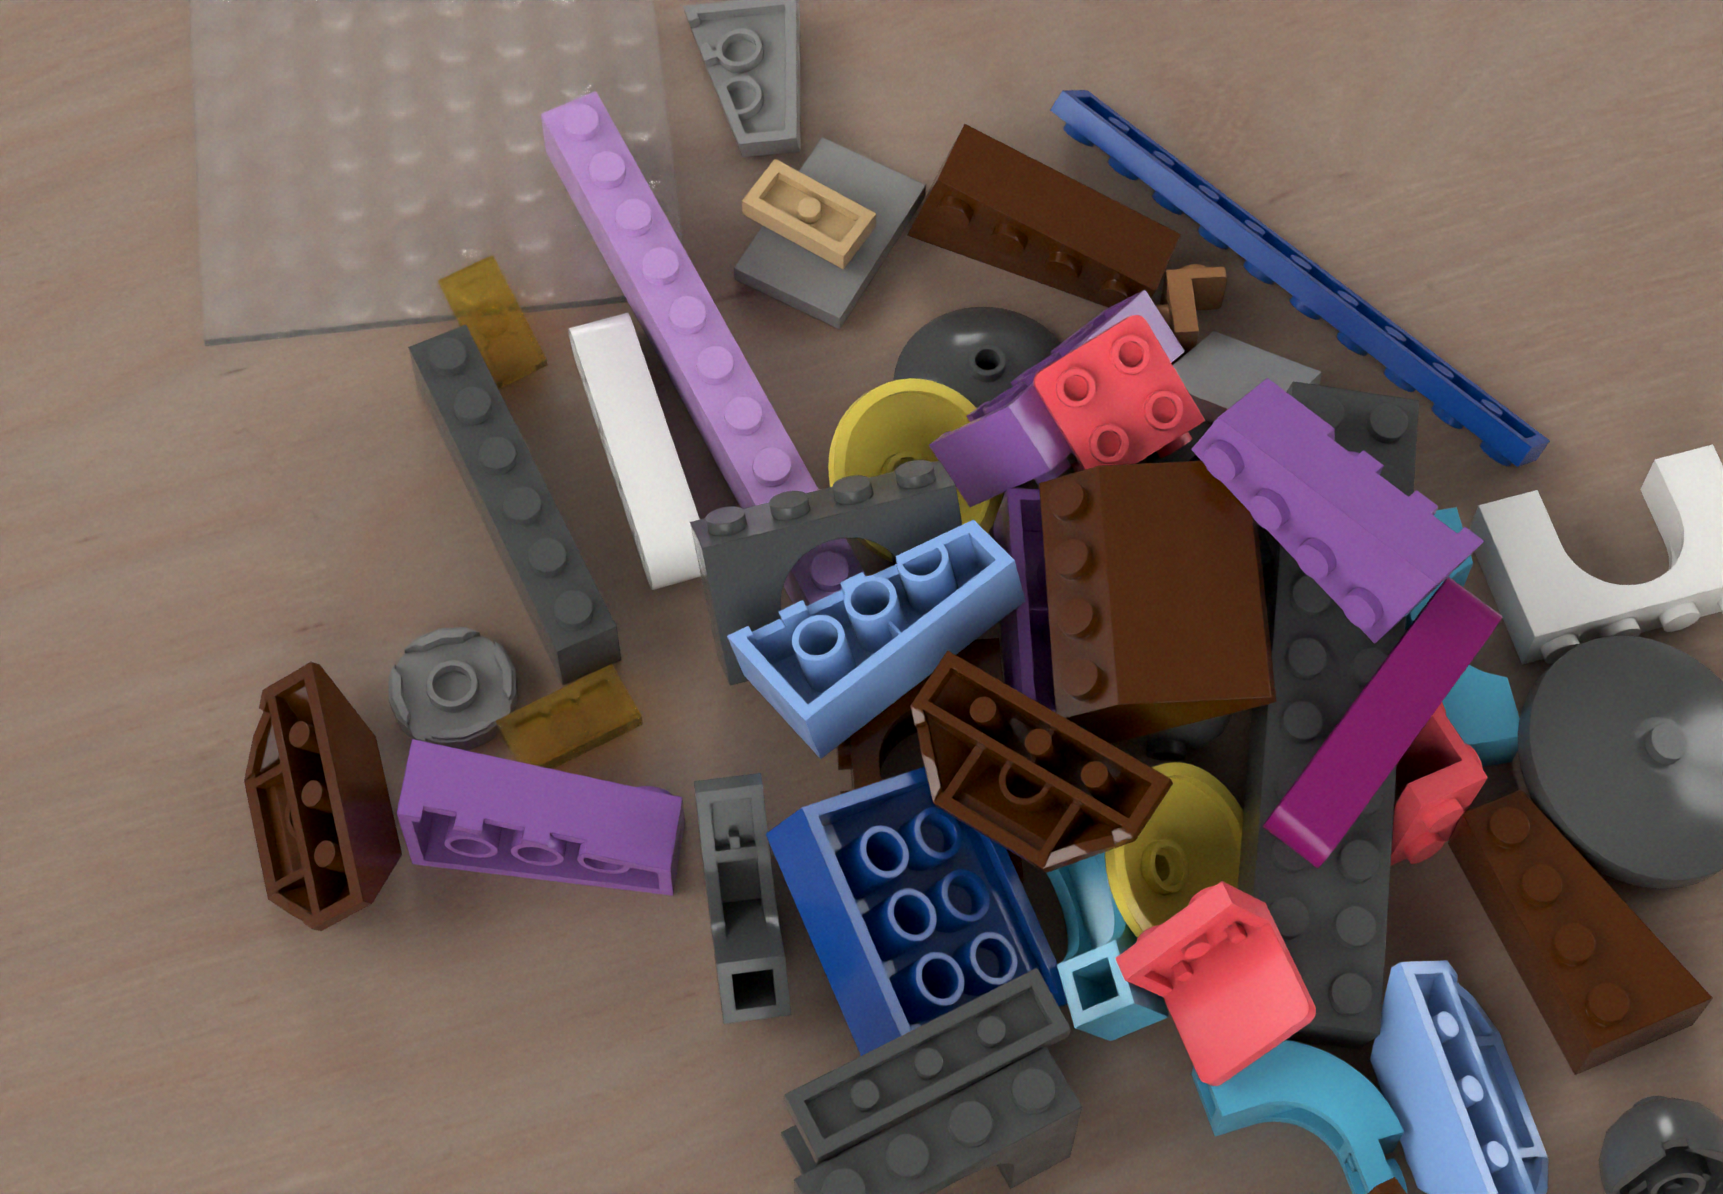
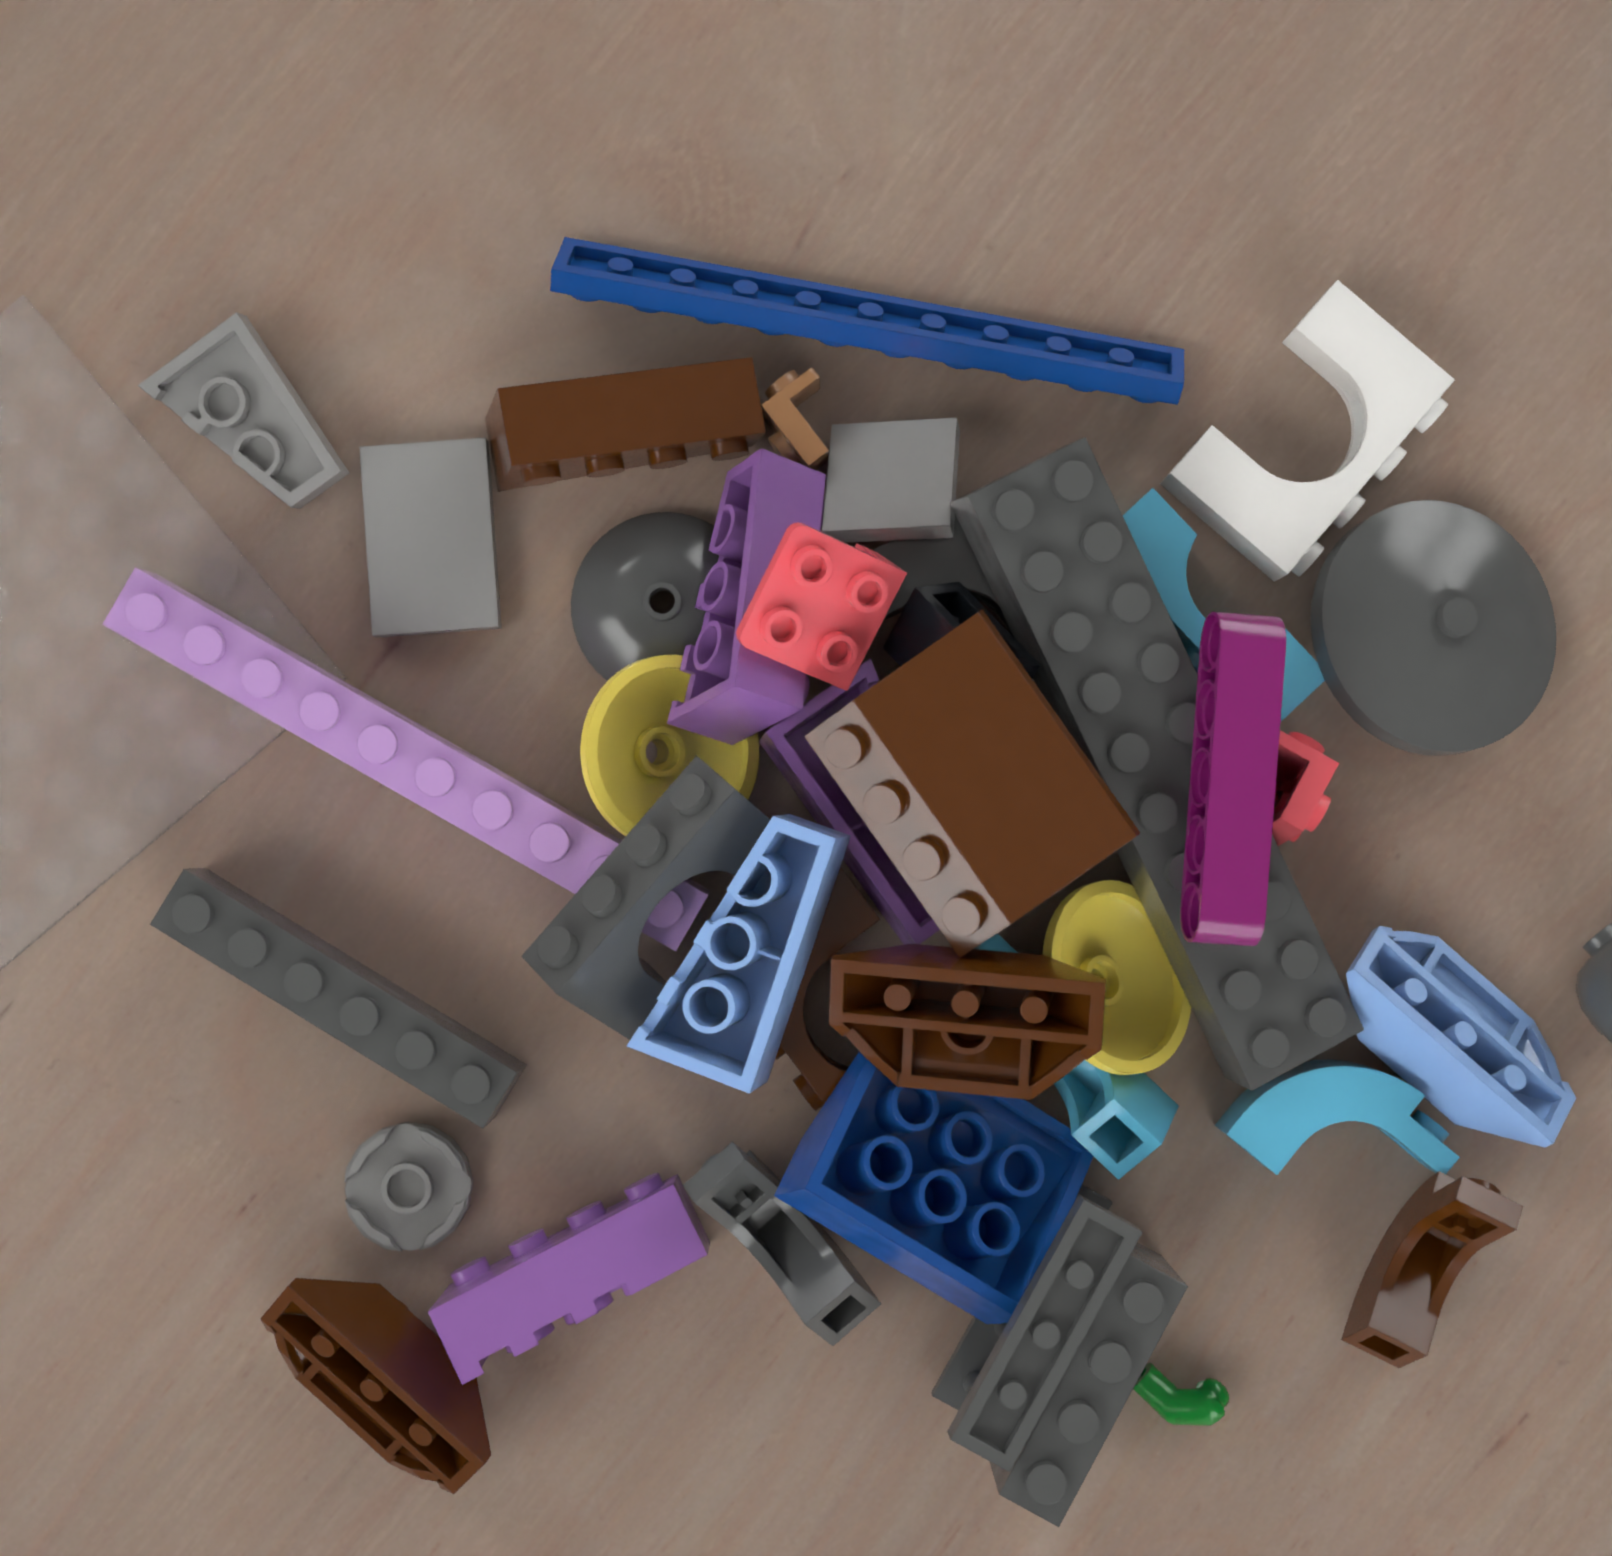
camera: 30 degrees left, 25 degrees up
(496, 322) = (198, 831): clear yellow plate -> none
(570, 720) = (527, 1159): clear yellow plate -> none
(638, 447) = (408, 868): white beam -> none
(809, 213) = (405, 546): tan plate -> none
(1222, 980) = (1230, 1085): coral bracket -> none
(1332, 508) = (1091, 628): medium lavender wedge -> none
(1571, 937) = (1468, 833): reddish brown wedge -> none

